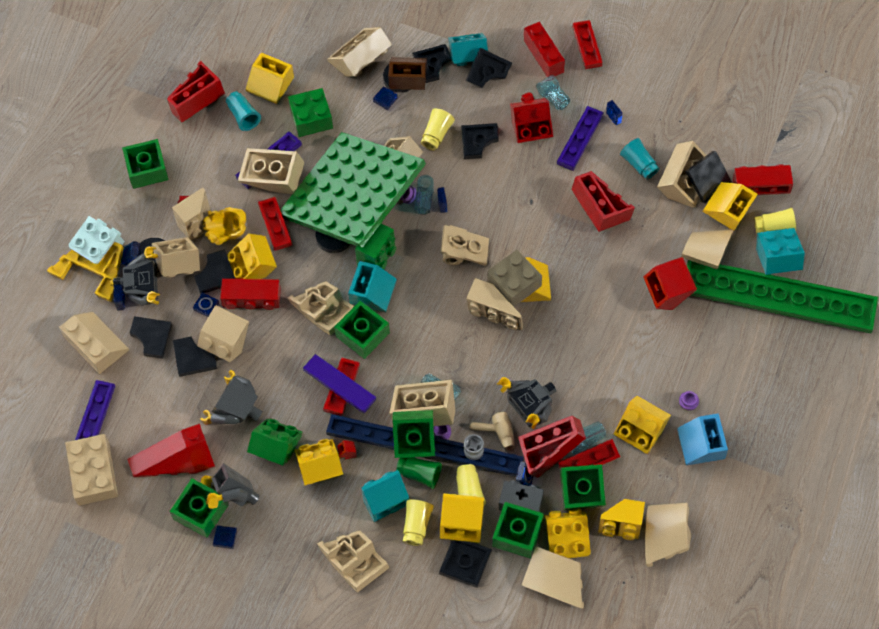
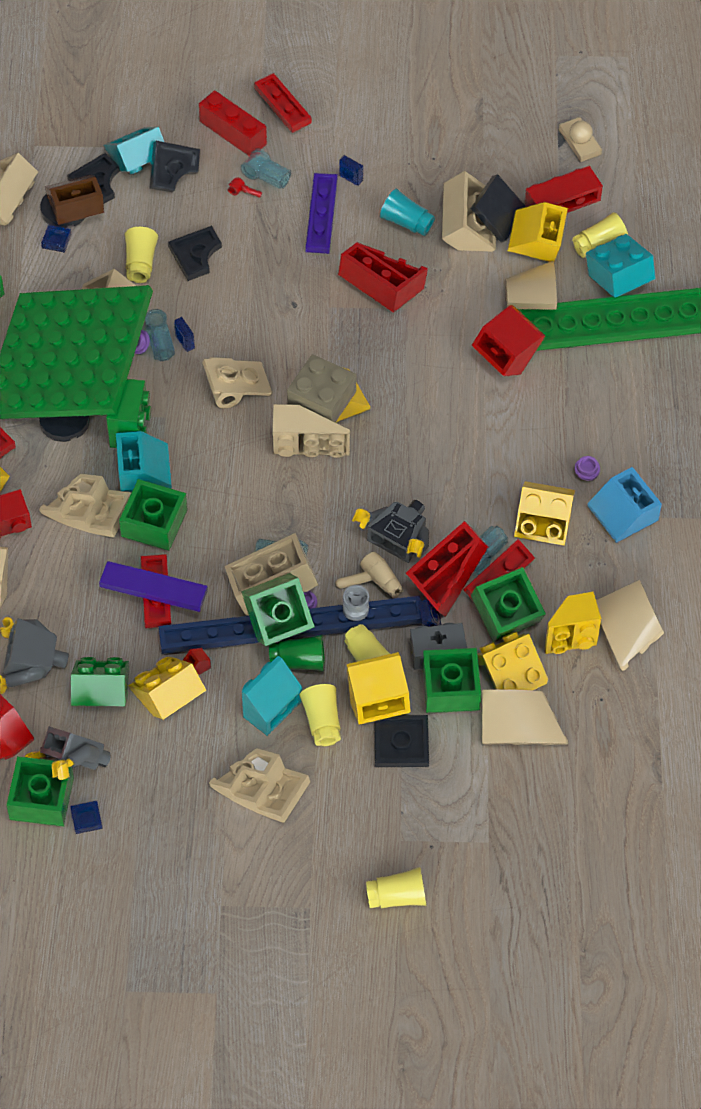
camera: 25 degrees left, 5 degrees down
(531, 120) = (254, 208): red slope -> none
(795, 140) = (580, 139): none -> tan tile

